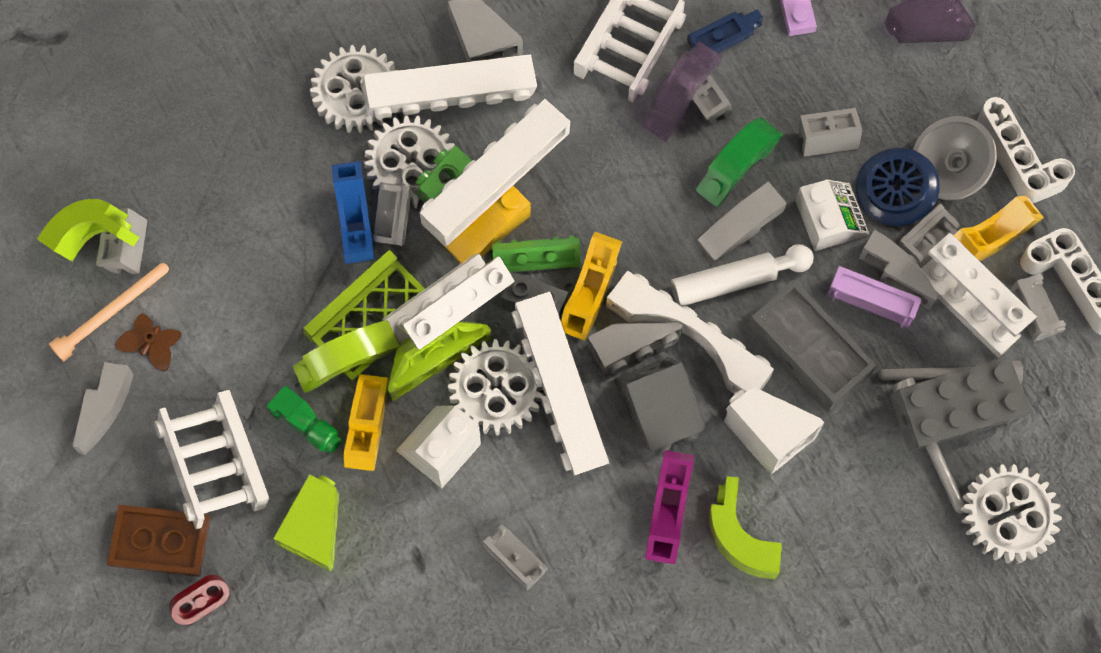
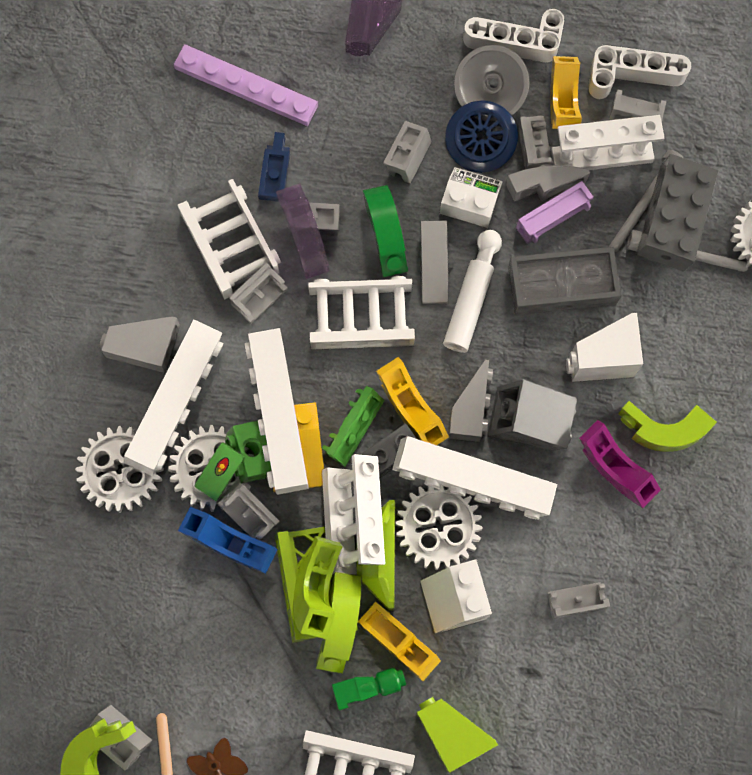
camera: 55 degrees left, 5 degrees up
(359, 310) = (311, 593): none -> lime arch
(407, 161) = (219, 471): none -> bright green slope
(598, 95) = (258, 293): none -> light grey hinge
(634, 217) = (374, 335): none -> white fence
(640, 303) = (544, 343): white arch -> none

